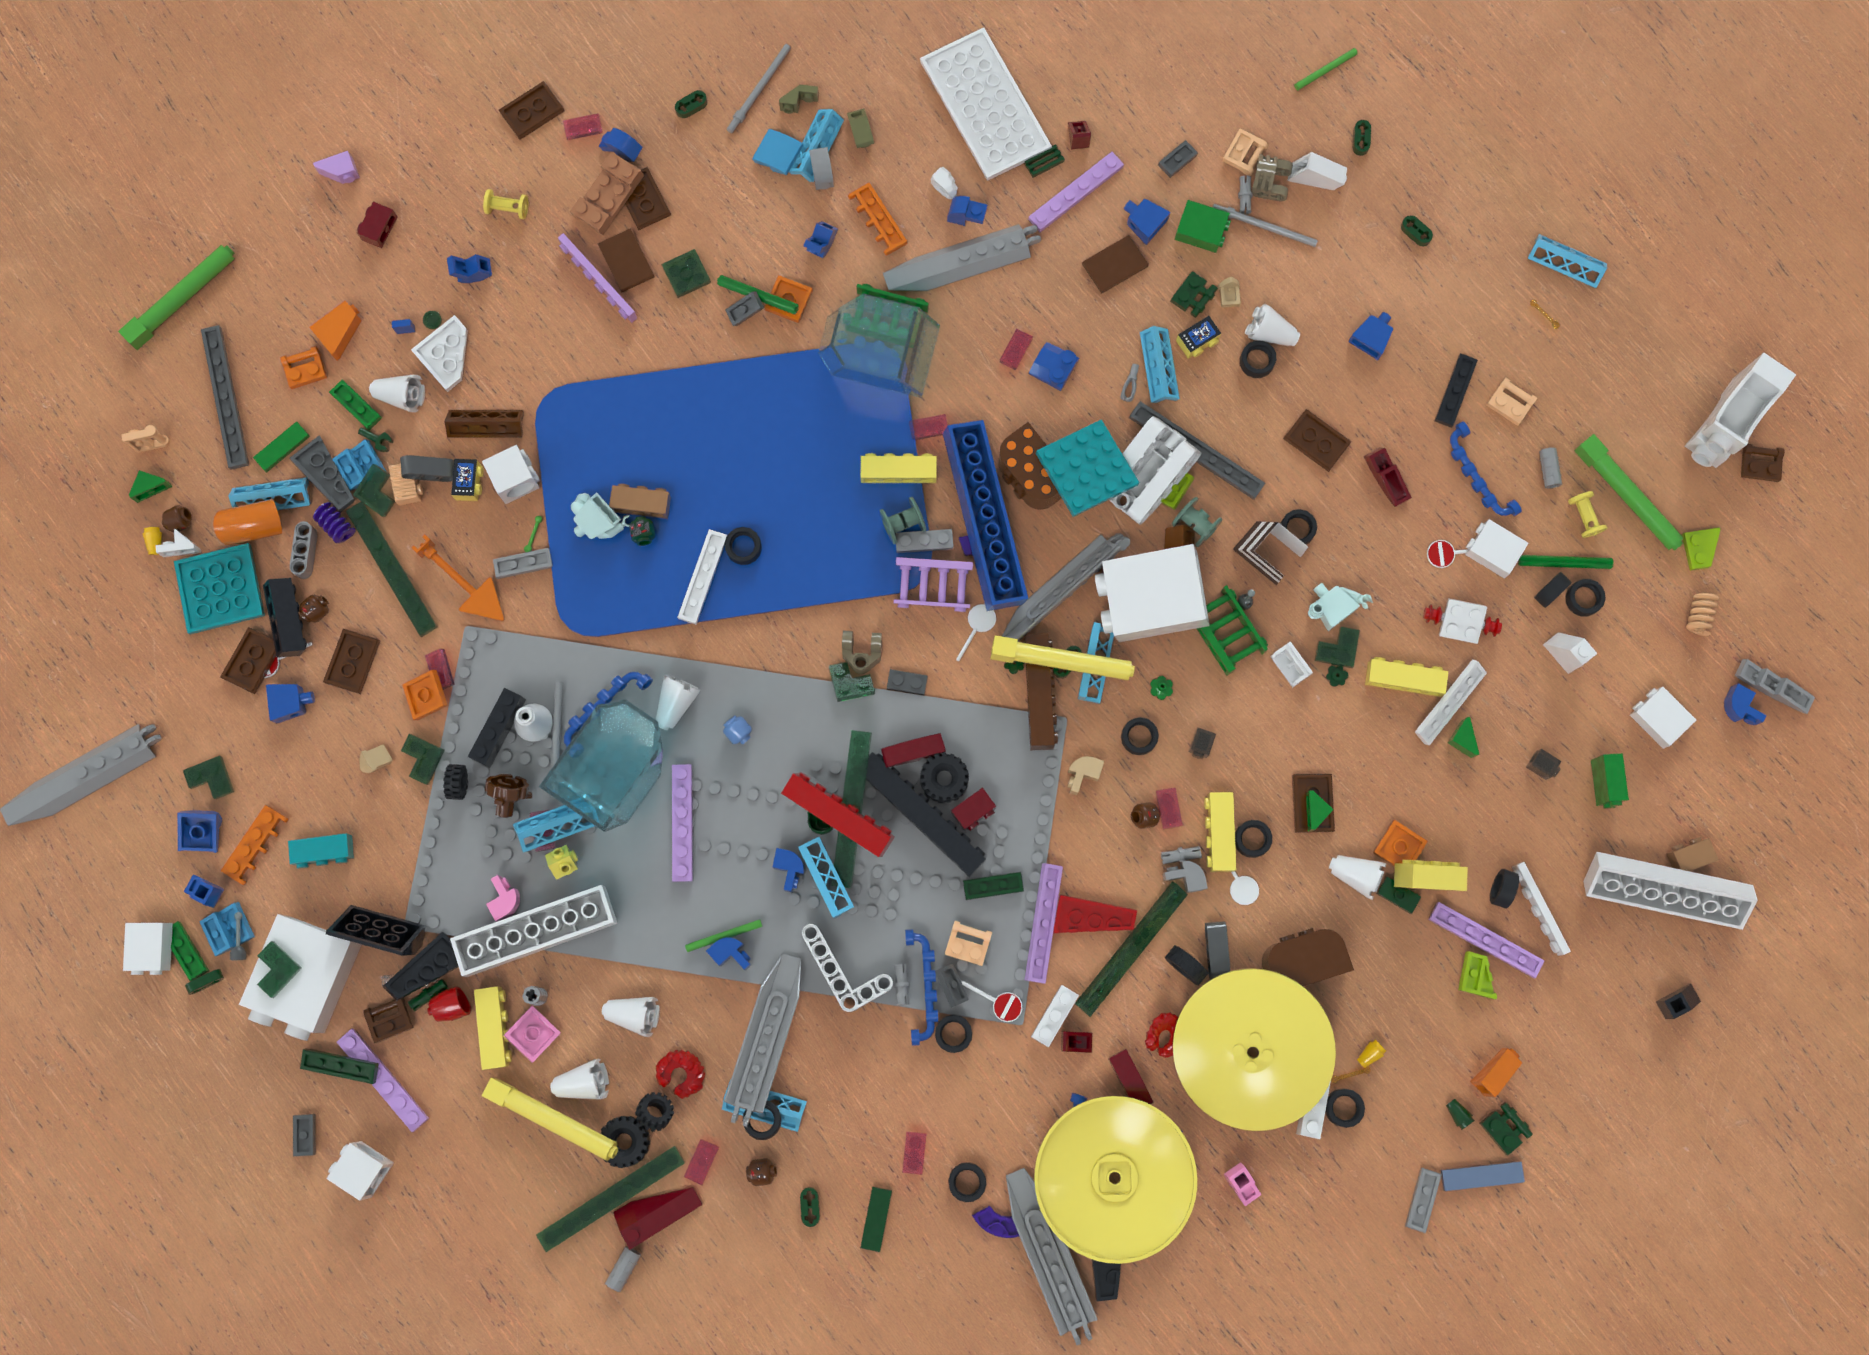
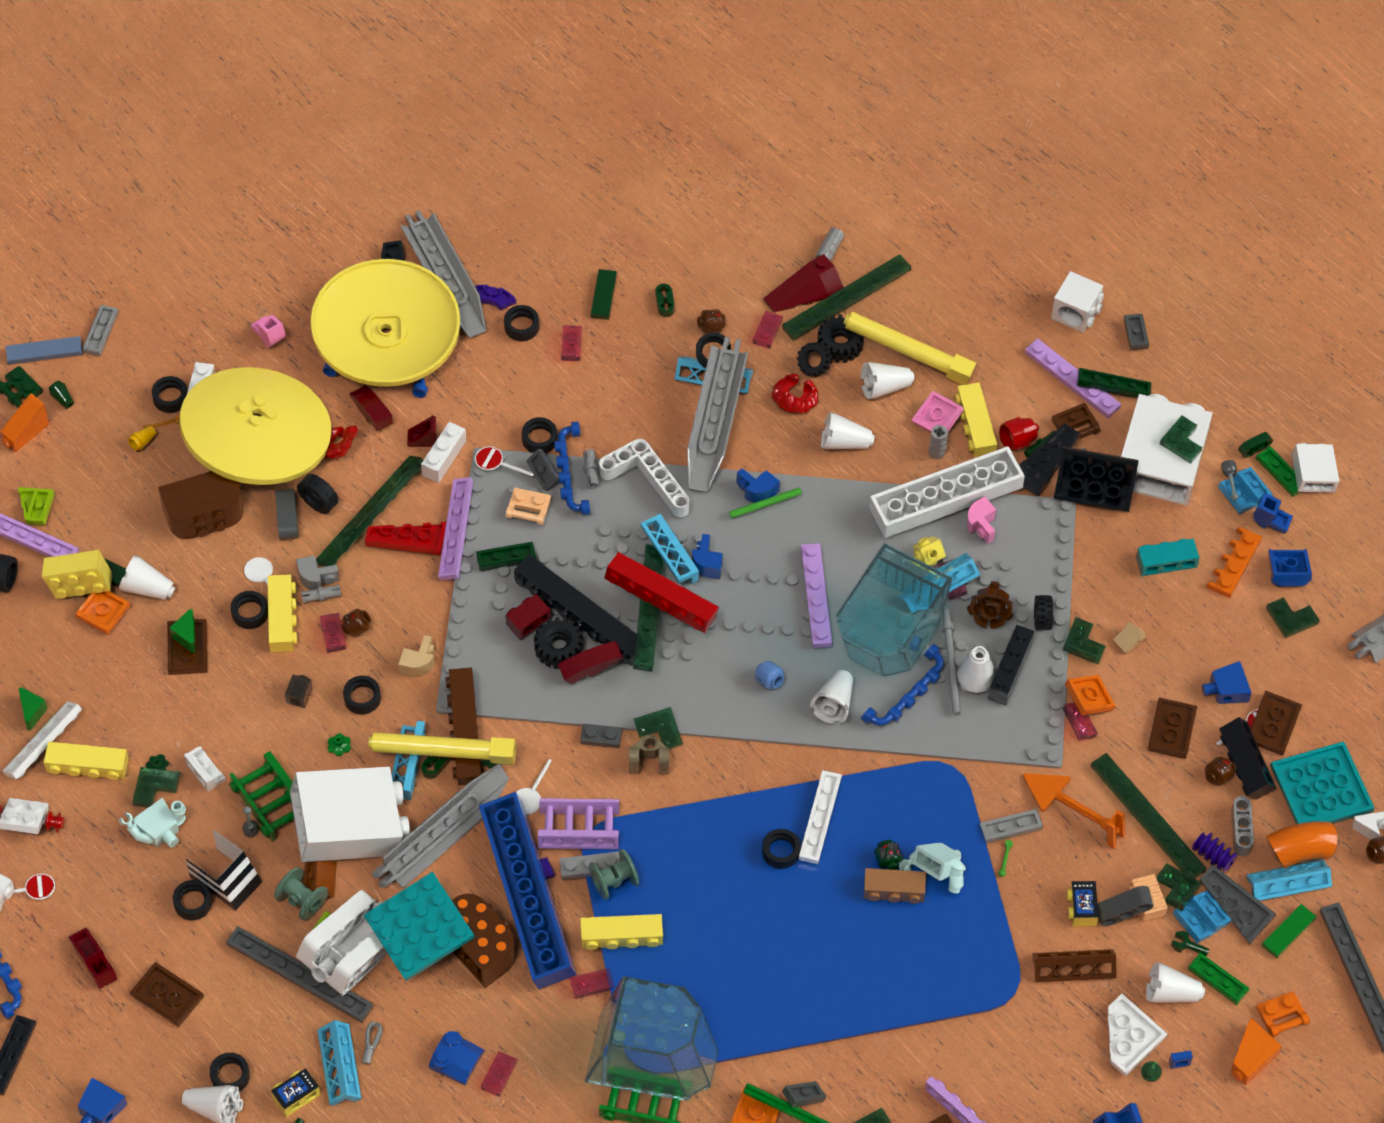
camera: 175 degrees right, 20 degrees down
(511, 474) = (1035, 904): white brick -> none

